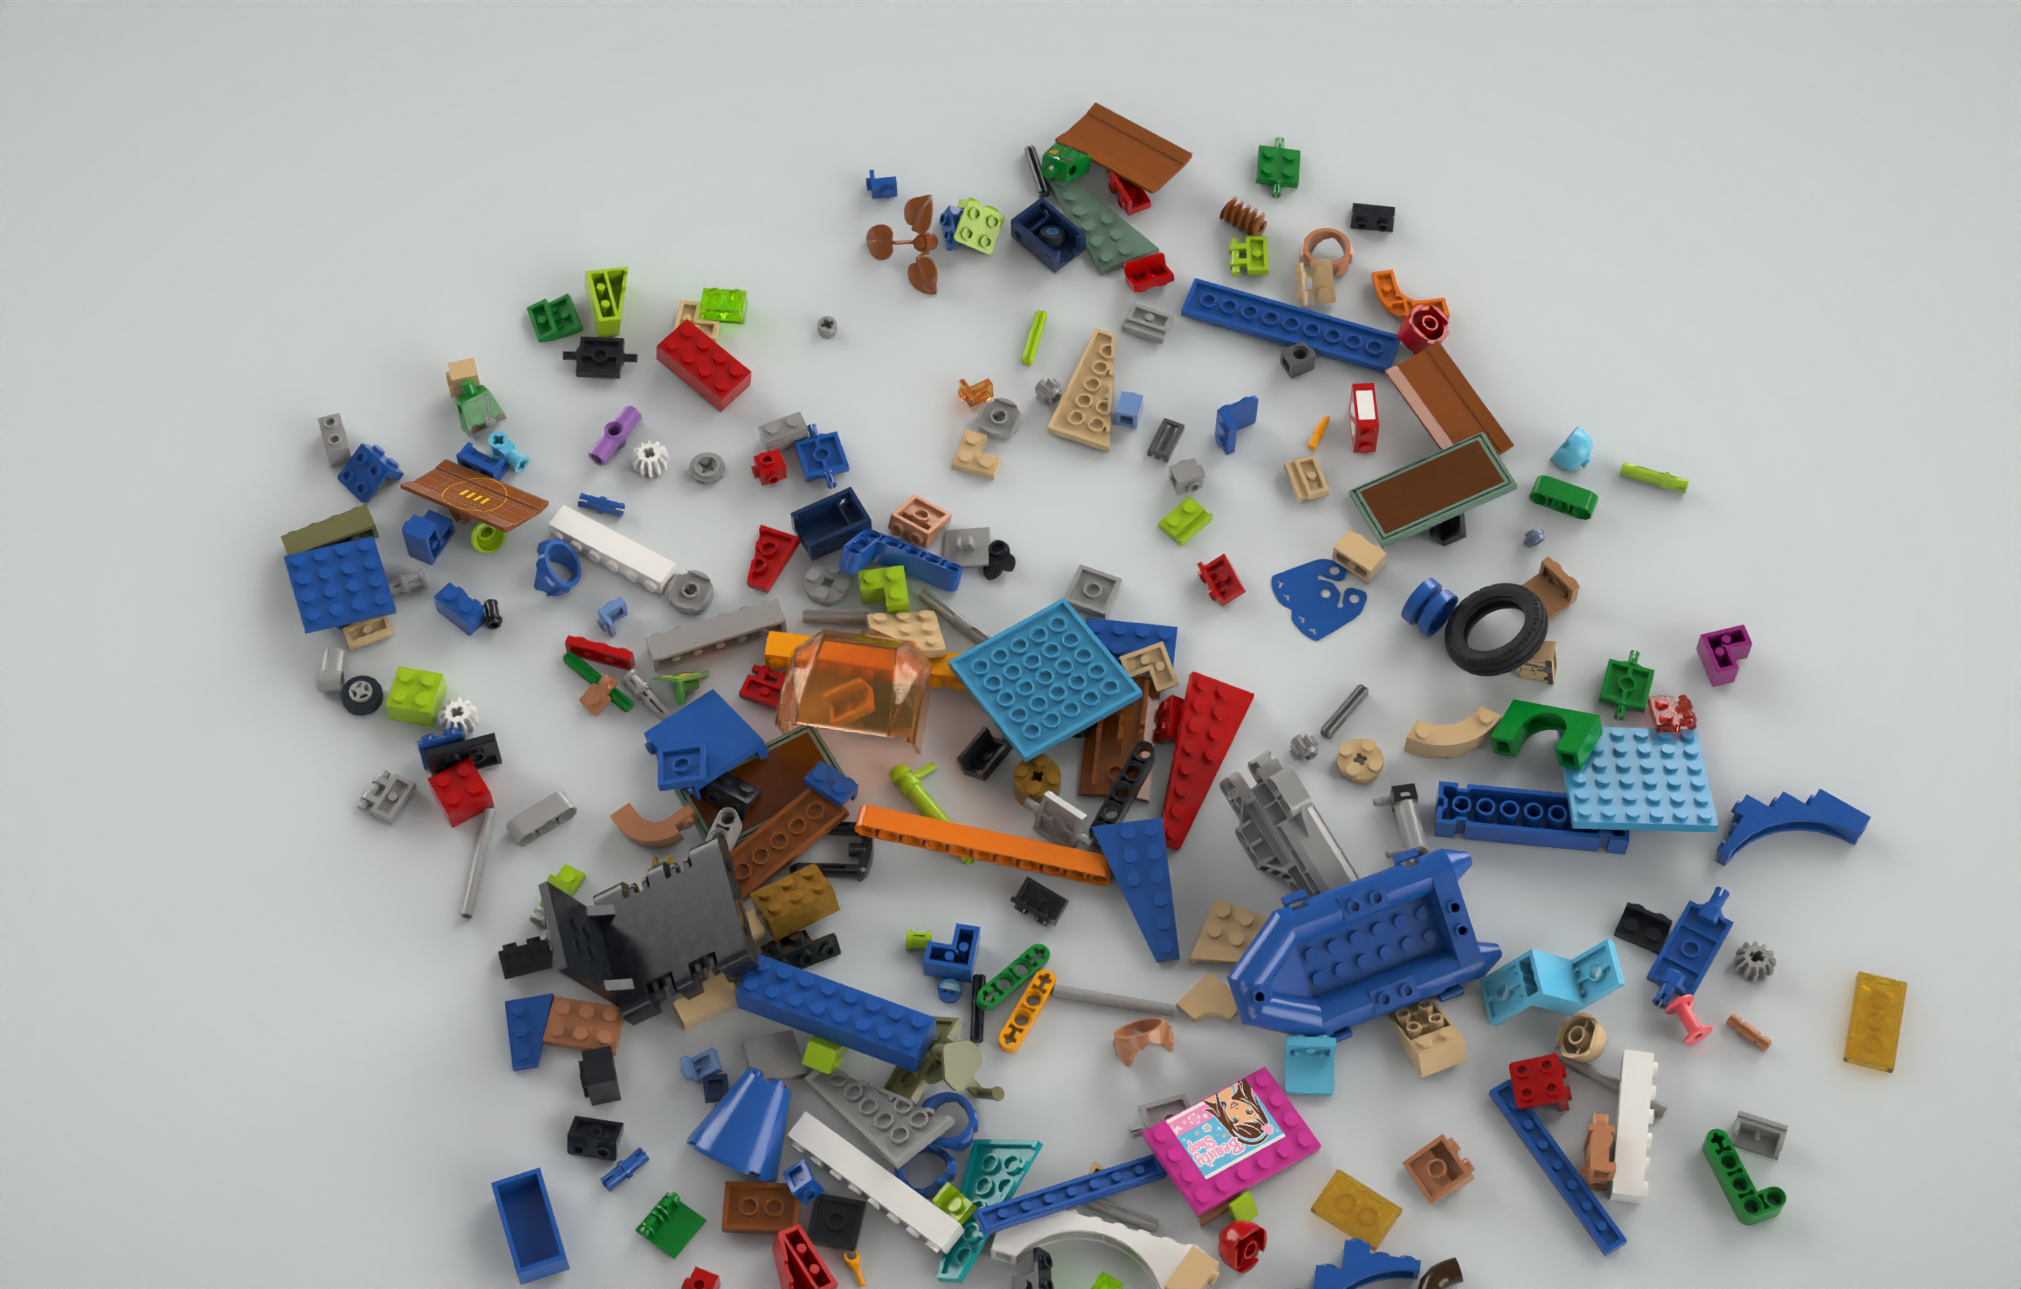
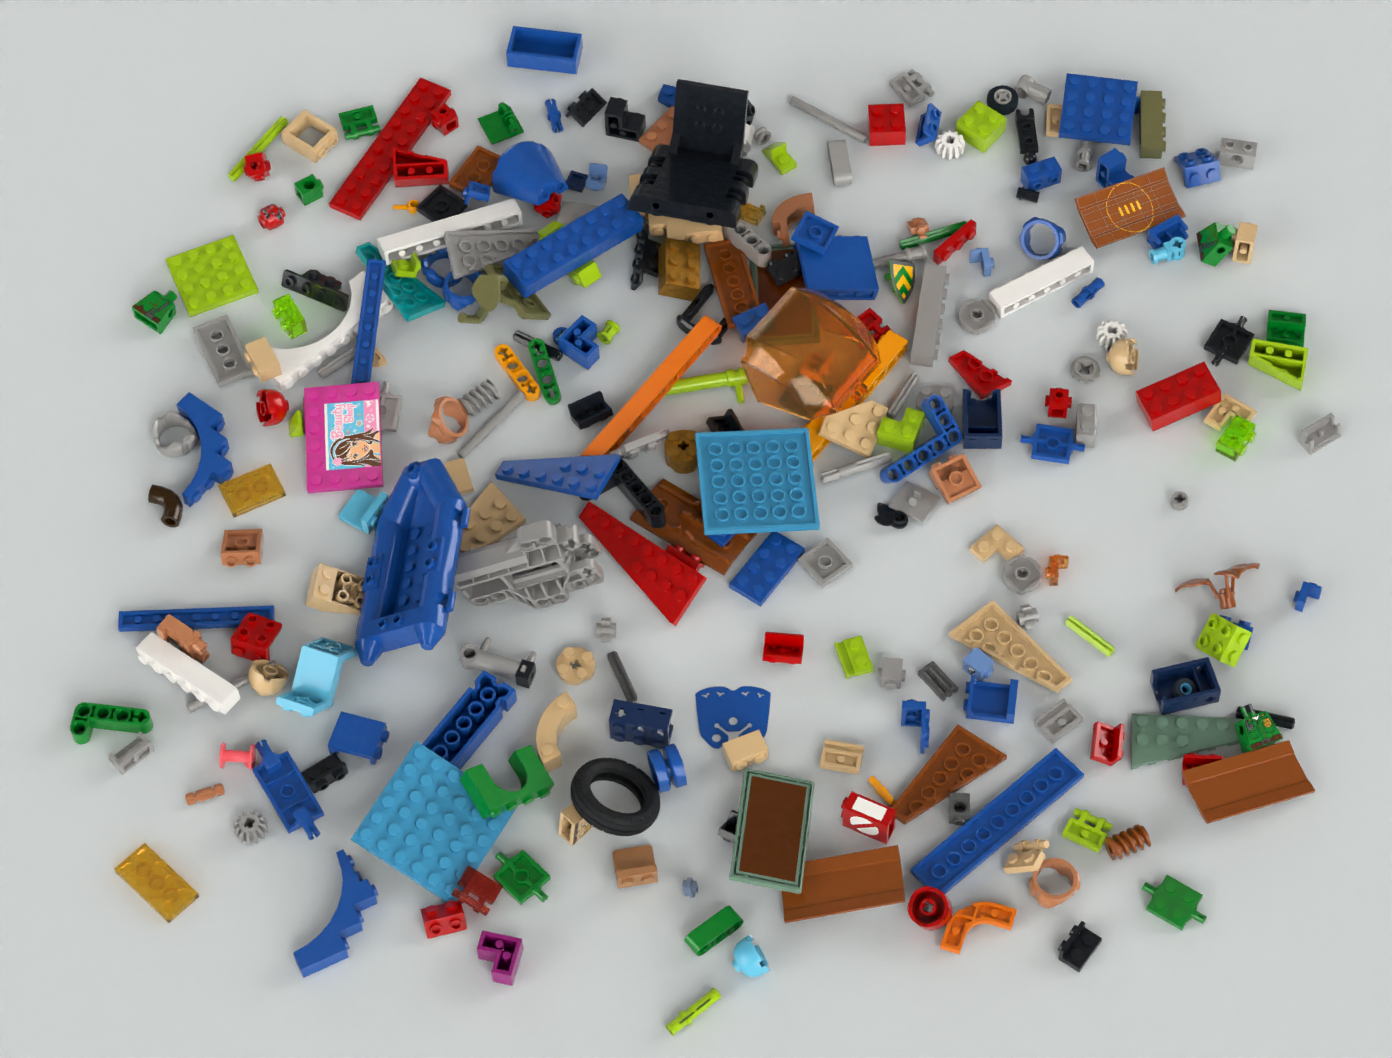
camera: 120 degrees right, 0 degrees up
(404, 649) = (1027, 136): none -> black plate
(481, 750) = (910, 130): black tile -> none
(621, 427) = (1146, 322): medium lavender piece -> none
(676, 243) = (1320, 434): none -> light grey hinge
(677, 433) = (1123, 356): none -> tan cylinder
(1090, 1025) = (479, 397): none -> light grey piece
(1152, 660) = (735, 566): tan plate -> none
(1159, 383) = (991, 701): none -> blue panel
(1240, 378) = (951, 767): none -> dark orange wing
(1397, 654) = (641, 724): none -> dark blue piece
(1586, 914) = (358, 737): none -> blue panel
(1717, 732) = (443, 919): none -> red bracket

